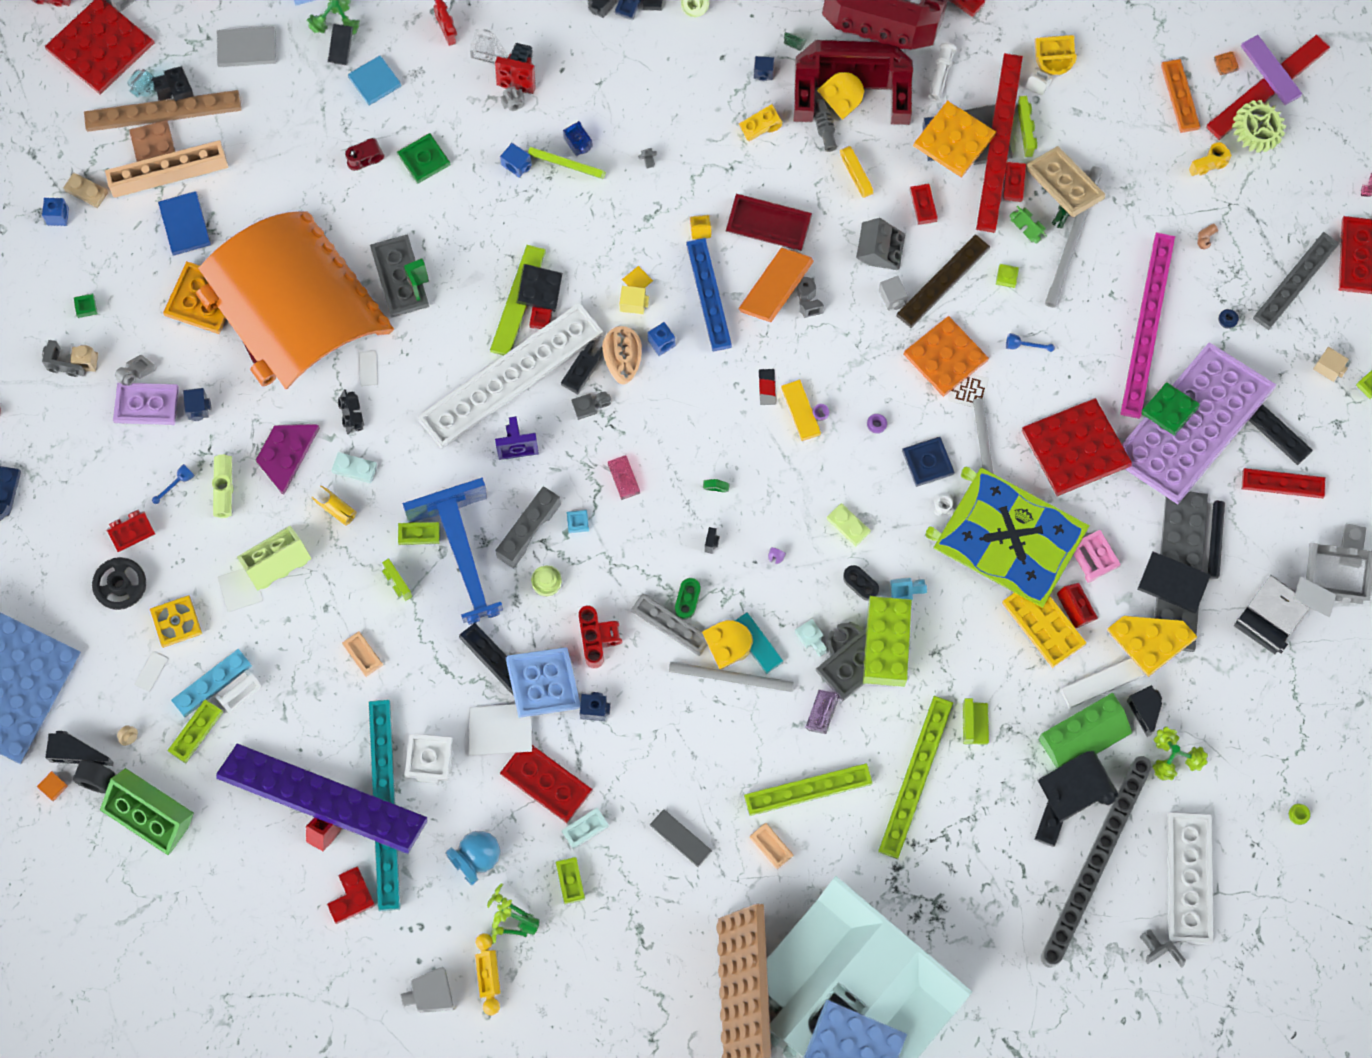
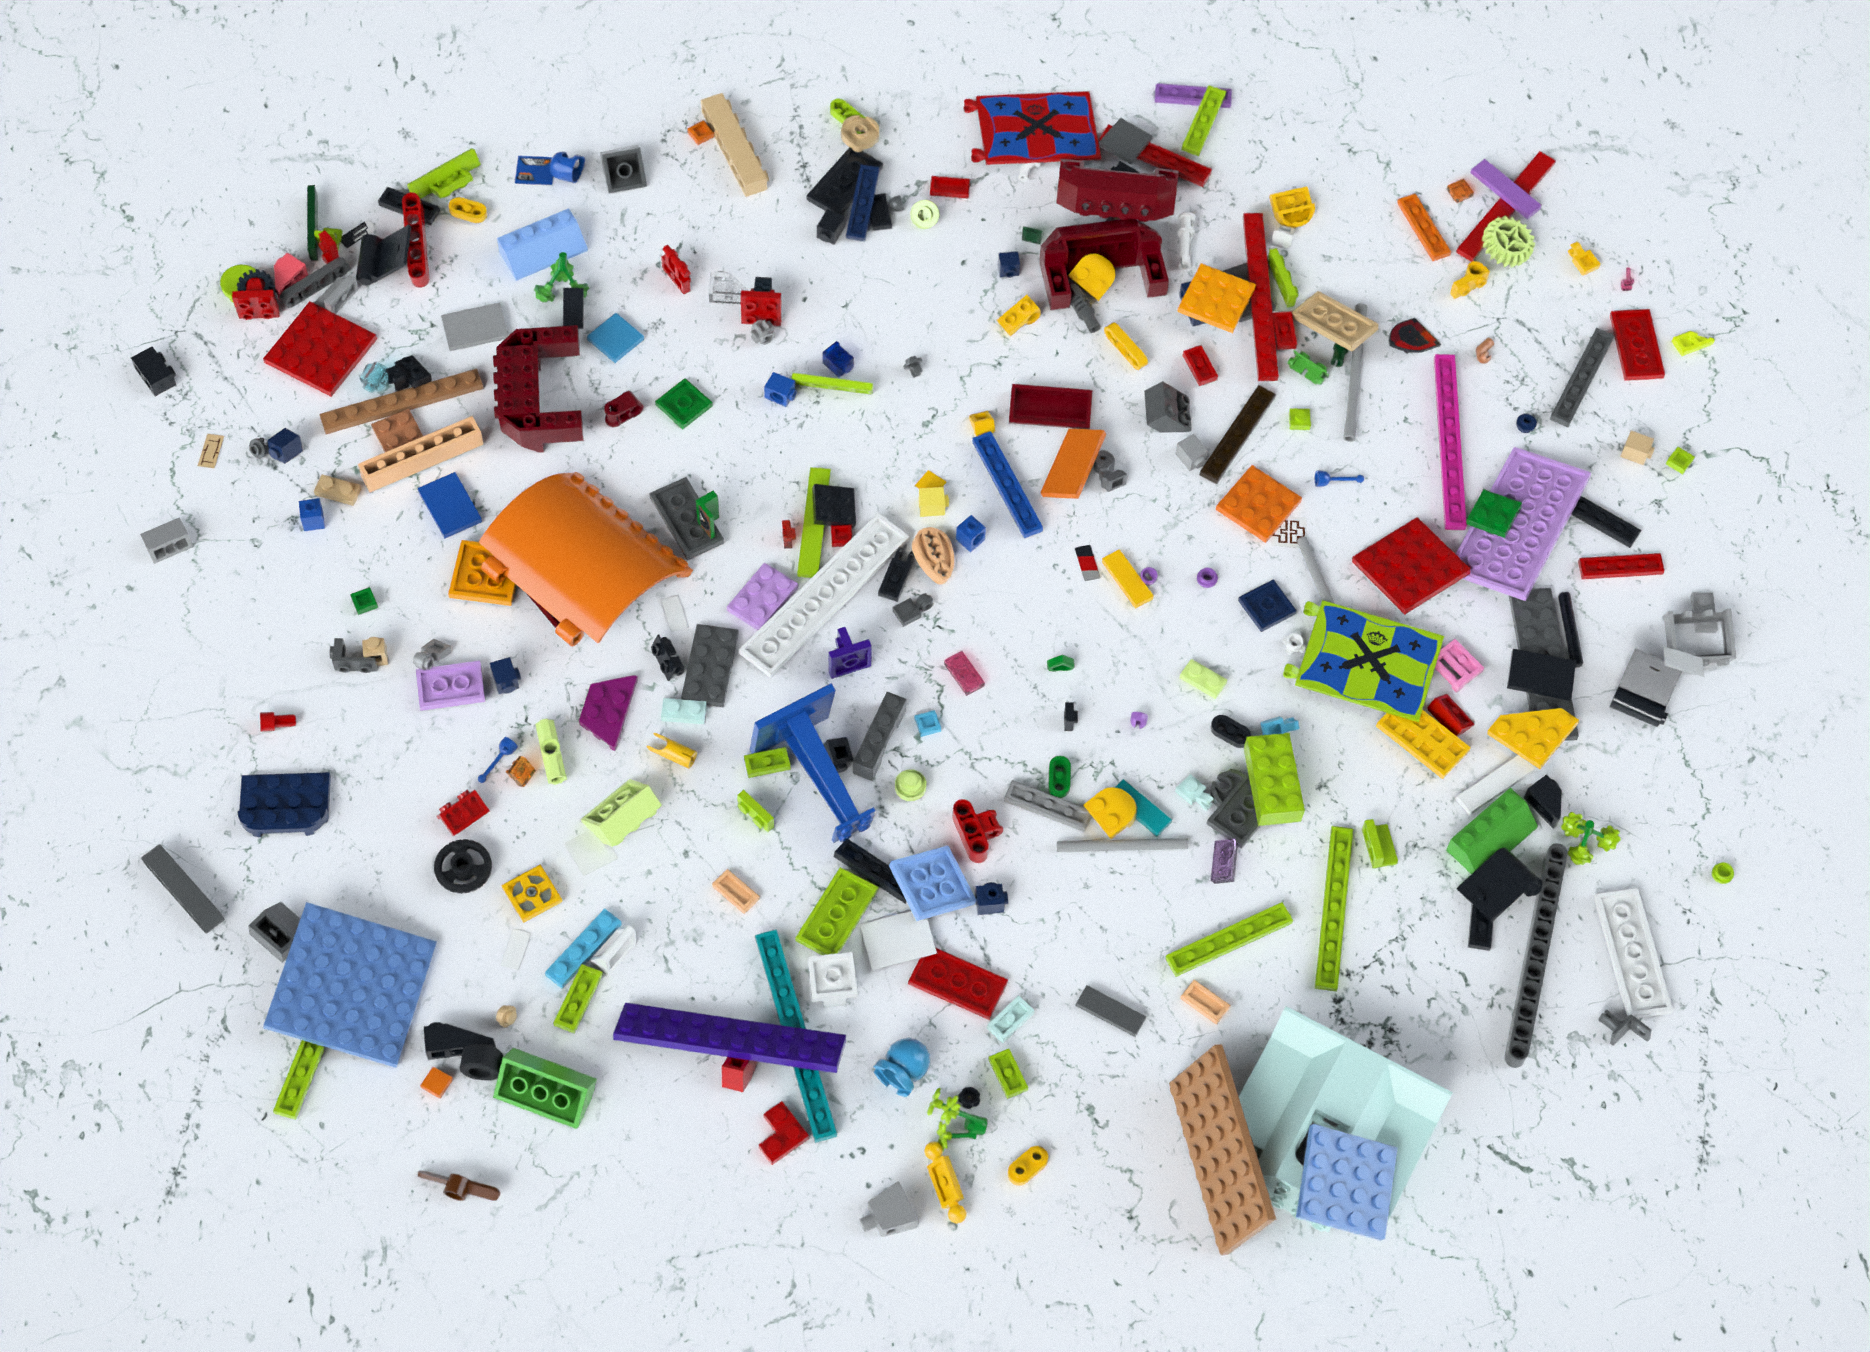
camera: 15 degrees left, 10 degrees down
(21, 137) = (258, 448): none -> dark grey plate
(44, 139) = (284, 445): none -> dark blue brick
(49, 890) = (459, 1186): none -> reddish brown piece
(191, 500) = (521, 771): none -> clear orange tile
(268, 116) = (518, 387): none -> dark red wedge
(388, 426) = (710, 664): none -> dark grey plate
(449, 694) = (836, 913): none -> lime plate
(452, 366) = (762, 596): none -> lavender plate
(486, 531) = (839, 753): none -> black brick
(490, 308) = (788, 534): none -> clear red plate
(523, 896) = (973, 1093): none -> black plate
(569, 974) = (1028, 1164): none -> yellow plate
(1137, 210) = (1412, 337): none -> shield
(1330, 158) = (1583, 260): none -> yellow plate

